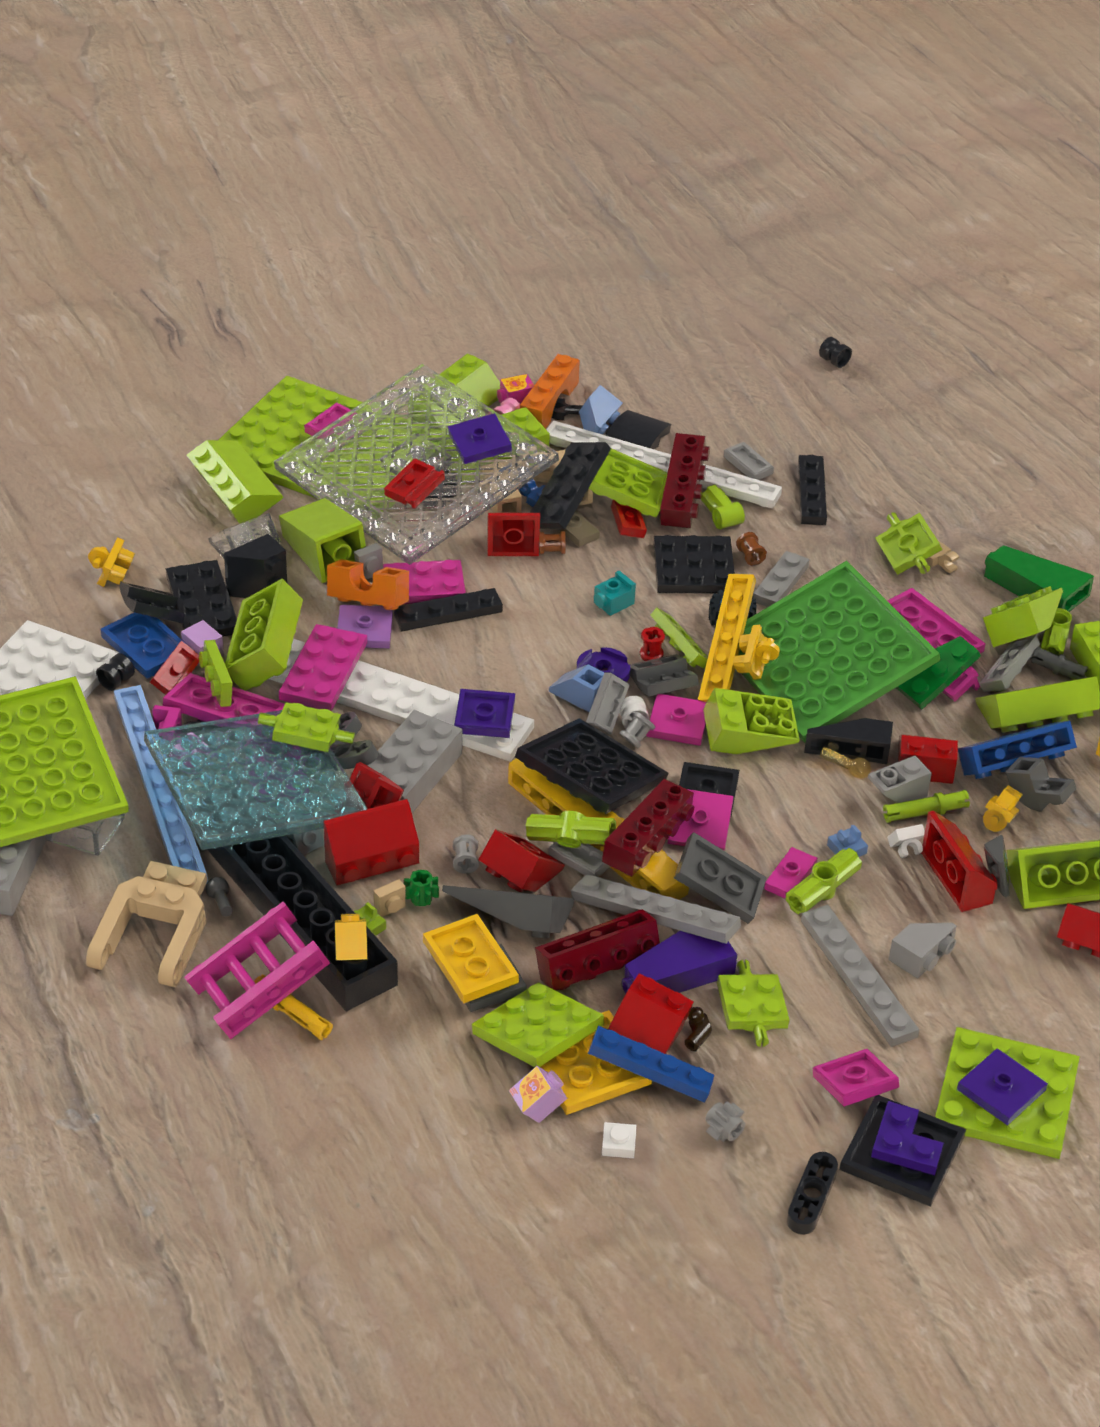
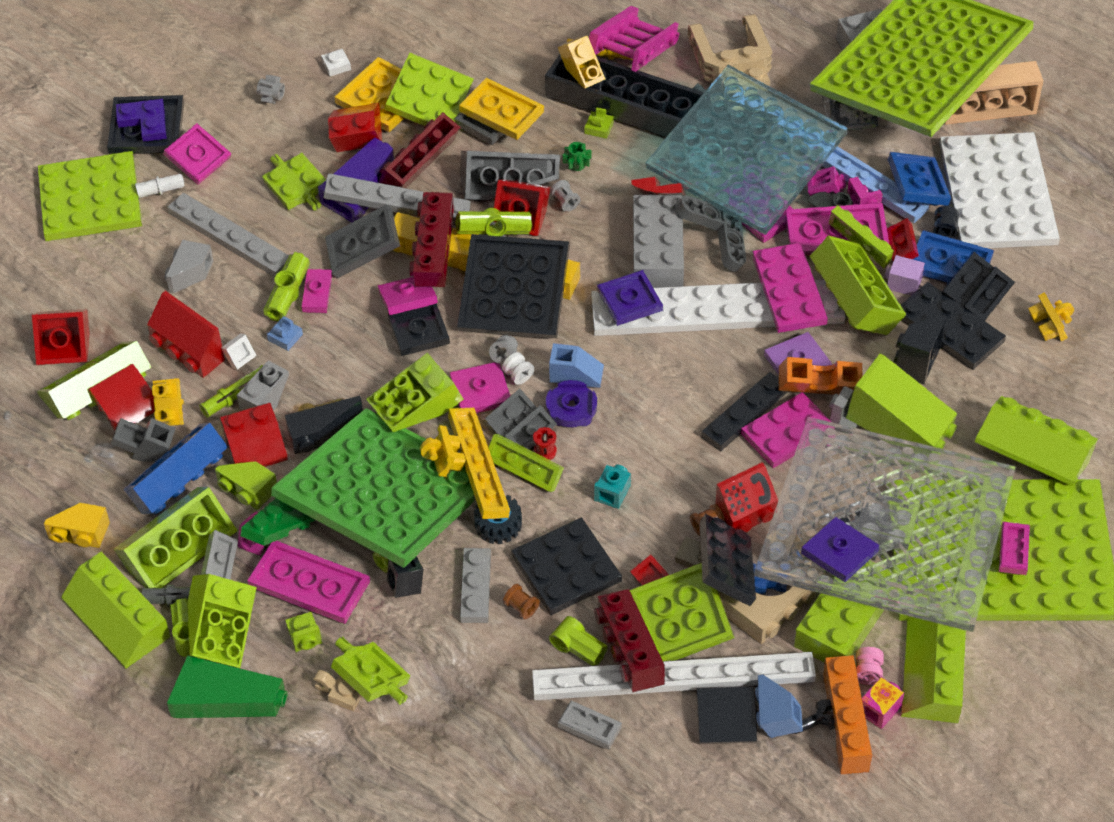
camera: 155 degrees right, 10 degrees up
(110, 701) = (919, 179): none -> blue plate
(243, 533) = (970, 390): clear slope -> none
(306, 727) = (743, 198): lime plate -> none
(371, 842) = (630, 164): red slope -> none
(390, 898) = (593, 137): tan plate -> none
(414, 483) = (859, 474): red plate -> none
(538, 1093) = (397, 50): lavender brick -> none
(607, 703) = (539, 352): light grey plate -> none
(651, 1064) = (337, 97): blue plate -> none
(700, 1028) = (322, 149): dark brown arm -> none
(812, 490) = (507, 724): black plate -> none
(814, 1205) = (200, 87): black beam -> none
(917, 1060) = (159, 185): none -> white axle
(949, 719) = (247, 481): none -> lime slope
(950, 596) = (303, 631): none -> lime bracket
(997, 863) = (151, 337): dark grey slope -> none
(1002, 1086) = (90, 178): dark purple plate -> none
(1046, 832) = (124, 396): none -> red slope

